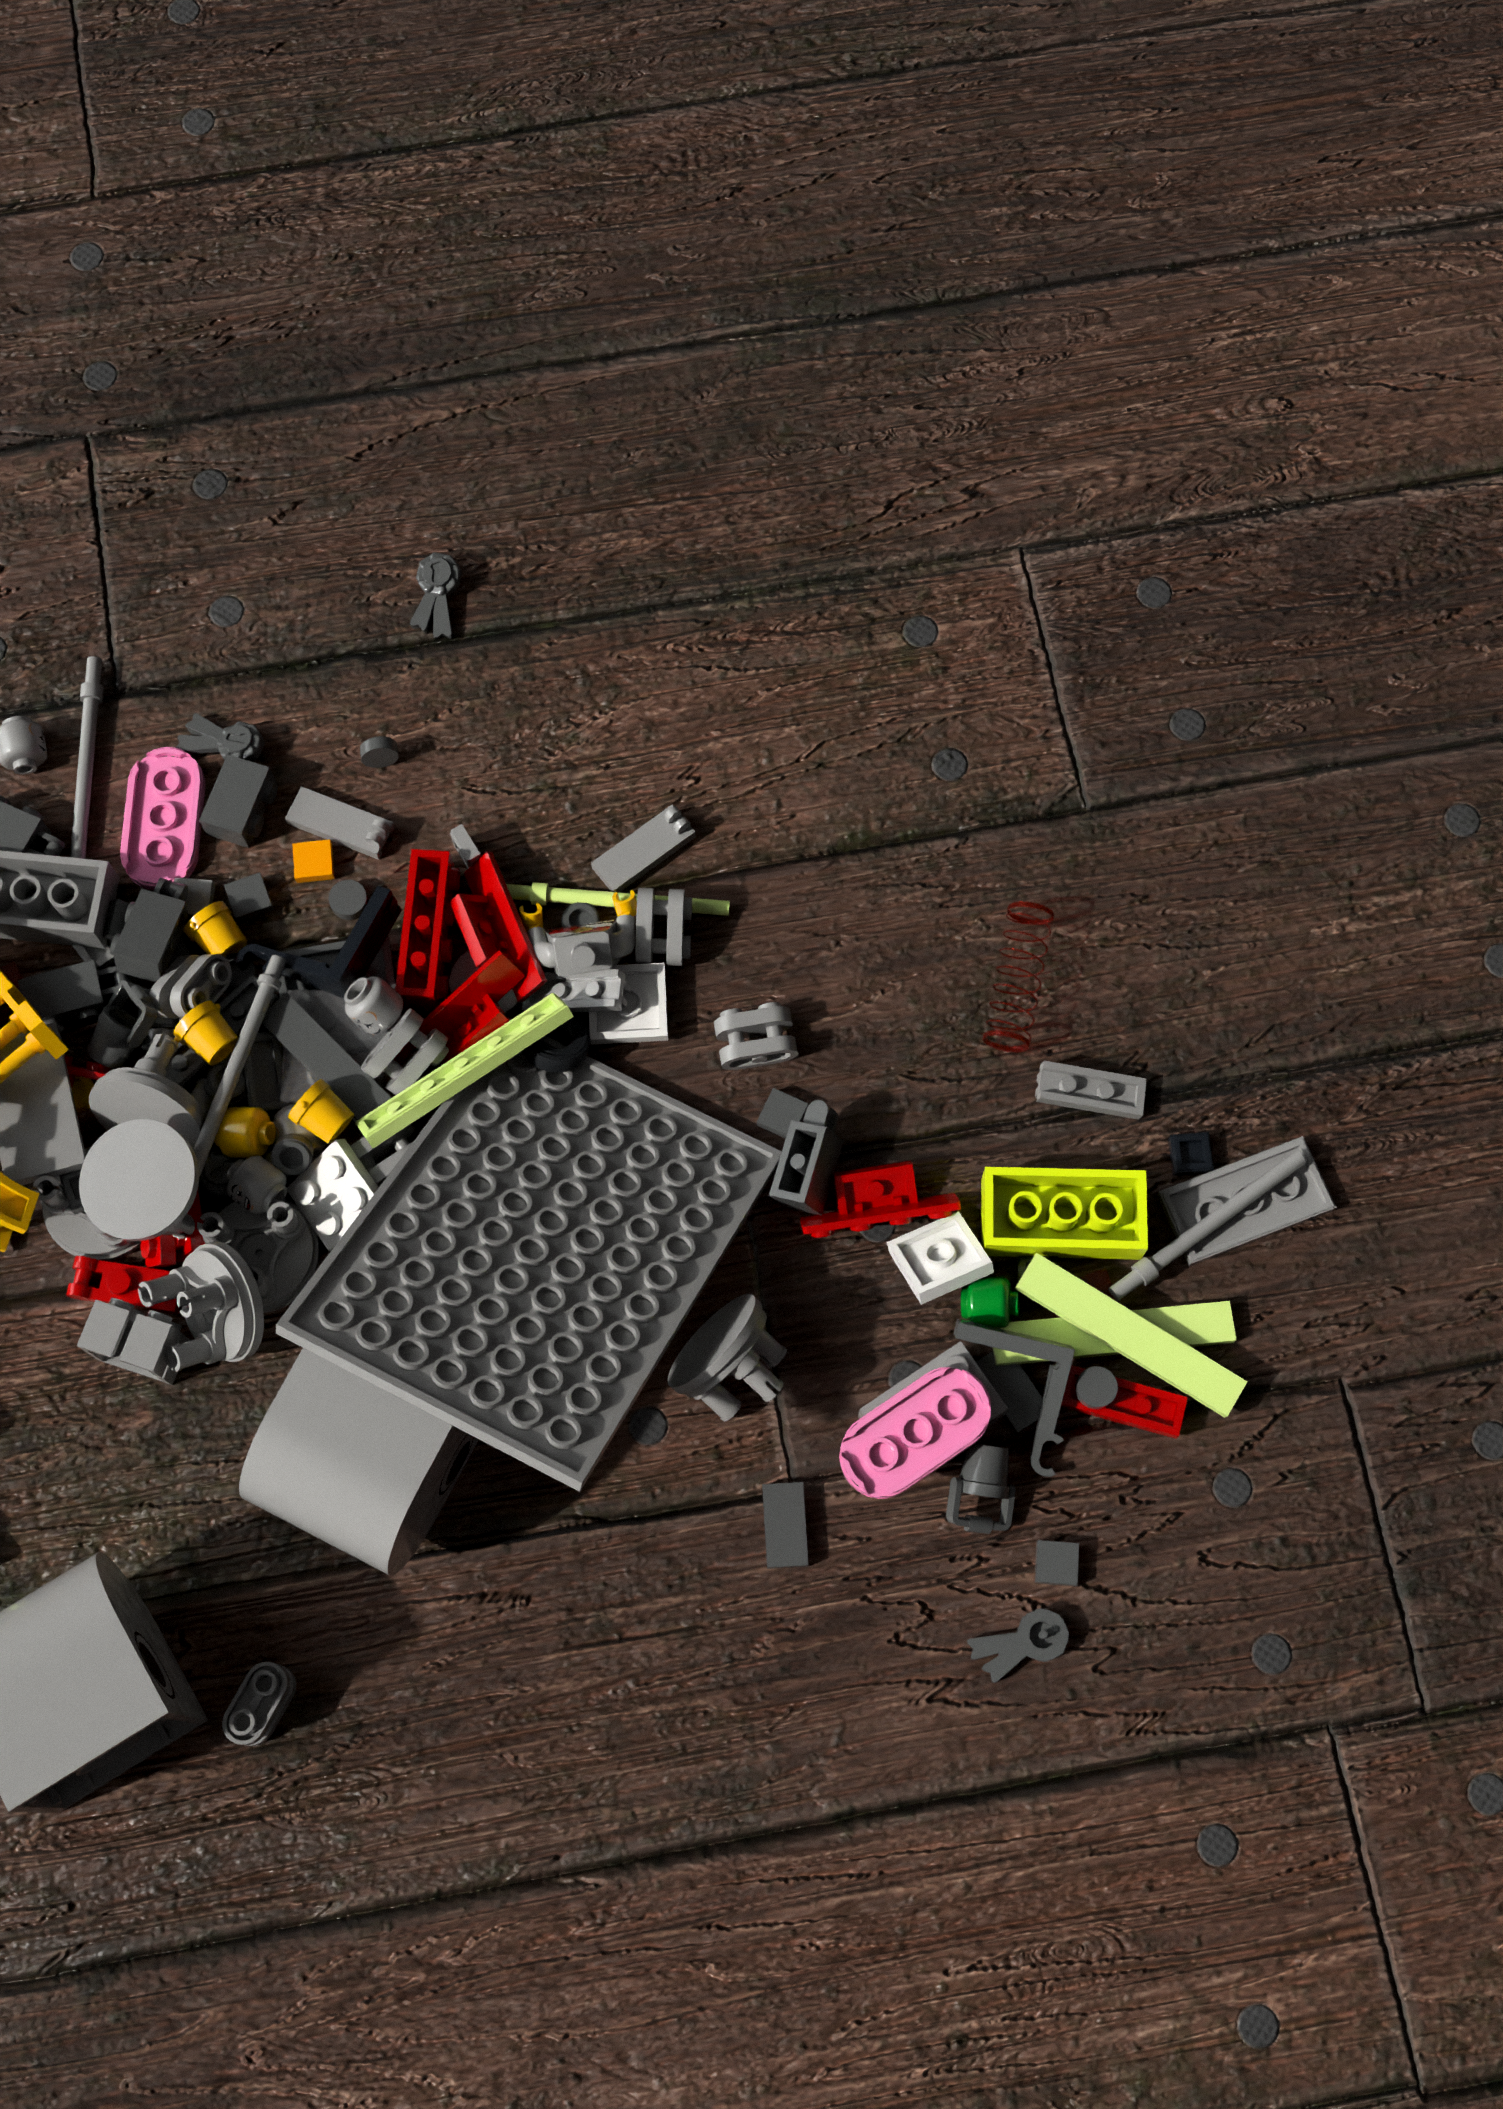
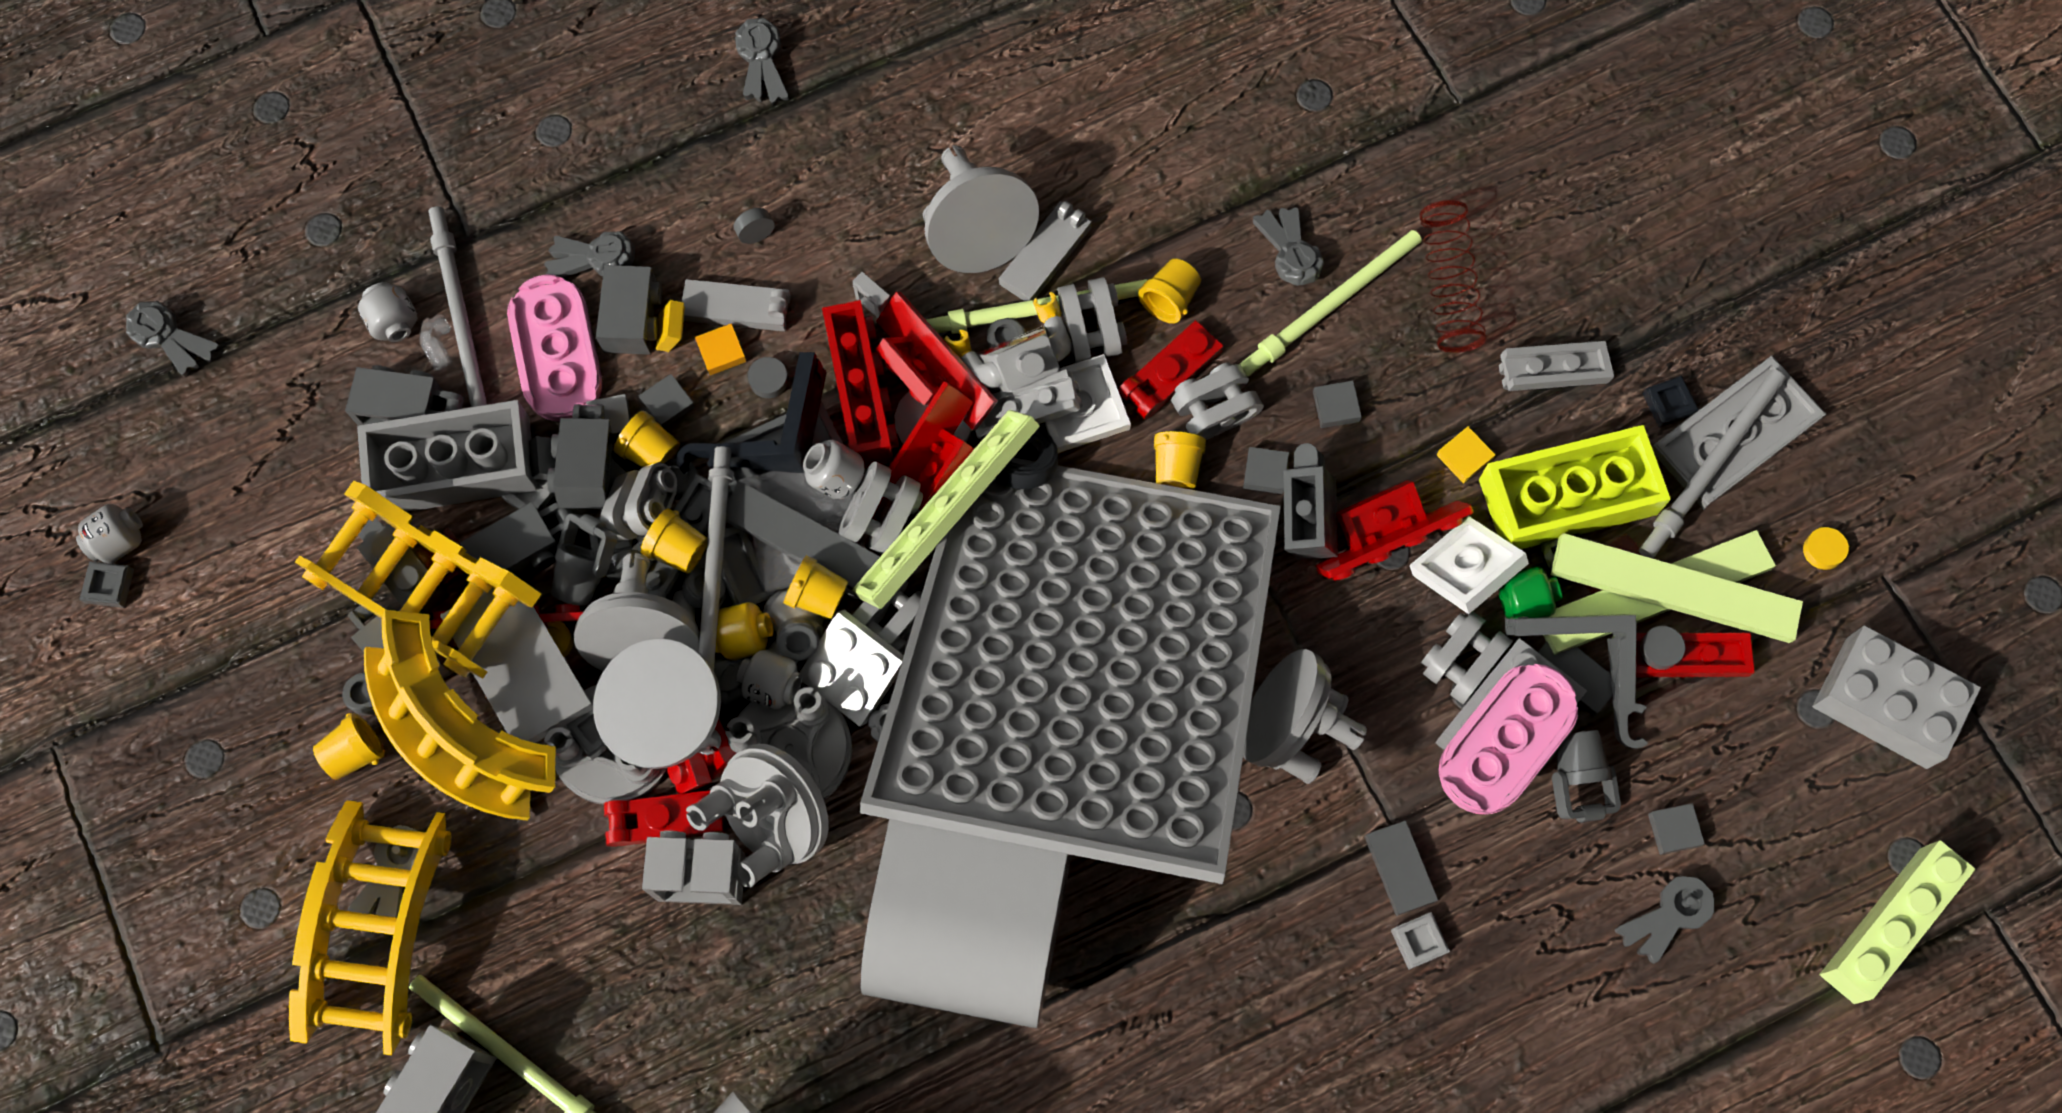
camera: 15 degrees left, 0 degrees up
(52, 781) = (431, 341): none -> clear arm
(272, 827) = (670, 325): none -> yellow tile
(584, 800) = (979, 216): none -> light grey piece
(701, 1081) = (1178, 458): none -> yellow piece
(728, 990) = (1173, 365): none -> red plate
(747, 918) = (1170, 291): none -> yellow piece
(780, 1598) = (1420, 941): none -> light grey tile
(827, 998) = (1274, 346): none -> yellowish green bar
(870, 1069) = (1337, 404): none -> dark grey tile
(877, 921) = (1297, 260): none -> dark grey piece
(915, 1320) = (1442, 660): none -> light grey brick
(976, 1151) = (1465, 454): none -> yellow tile
(1234, 1711) = (1897, 922): none -> yellowish green brick
(1292, 1336) = (1825, 548): none -> yellow tile
(1307, 1498) = (1896, 697): none -> light grey brick

